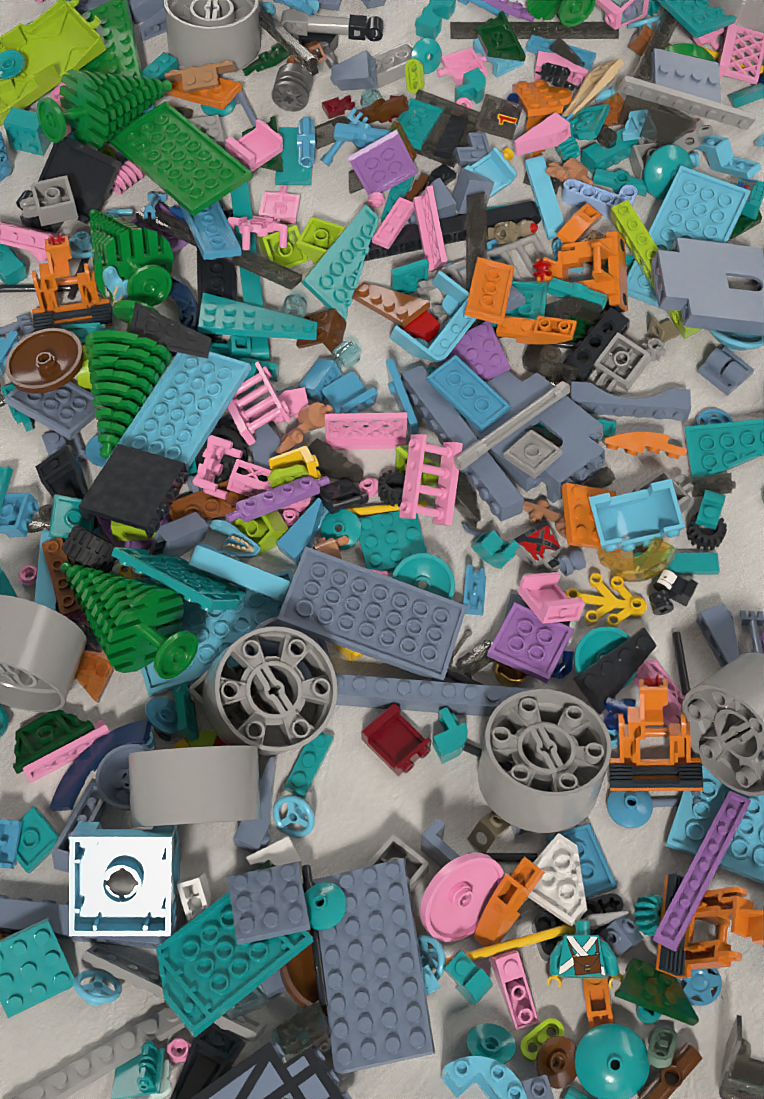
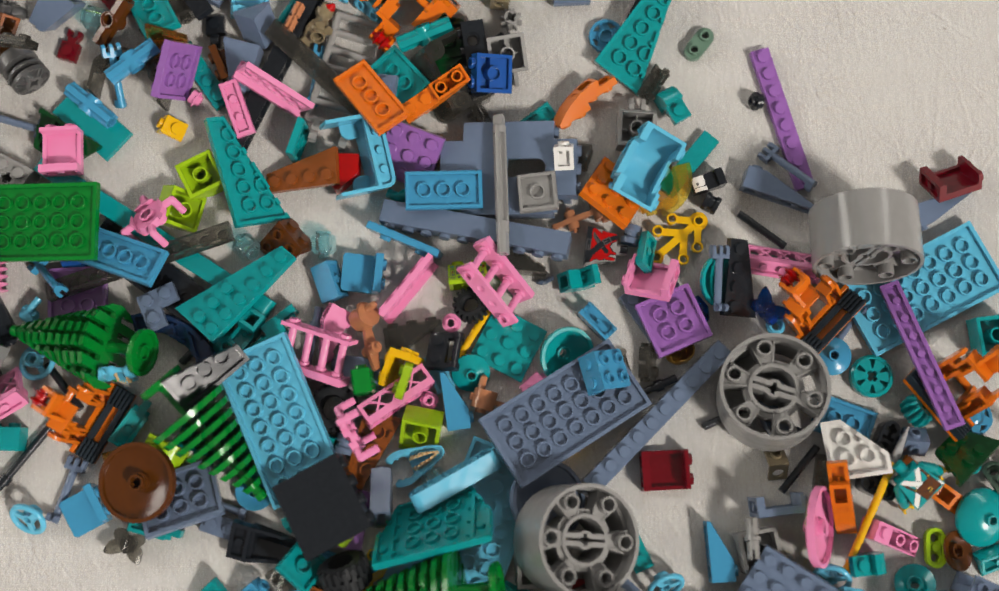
camera: 50 degrees left, 20 degrees up
(195, 279) = (154, 301): none -> sand blue plate
(260, 445) = (363, 381): none -> green brick
(277, 498) = (416, 403): medium lavender plate -> none
(280, 206) = (136, 178): bright pink plate -> none
(339, 201) = (171, 127): none -> yellow bracket
(355, 848) = (719, 561): none -> dark azure slope
(399, 845) = (752, 538): none -> light grey pin
(436, 615) = (604, 371): none -> dark azure bracket
(453, 739) = (697, 431): teal brick -> none
(504, 208) = (296, 13): none -> nougat piece
(567, 579) = (646, 252): none -> teal plate
(580, 447) = (563, 156): none -> white bracket
(593, 356) = (490, 73): none -> blue plate
(619, 631) = (719, 253): none -> sand blue hinge
(634, 864) = (859, 376): none -> teal wheel
(668, 405) = (567, 49): sand blue arch -> none
(706, 540) = (686, 131): black tyre -> none

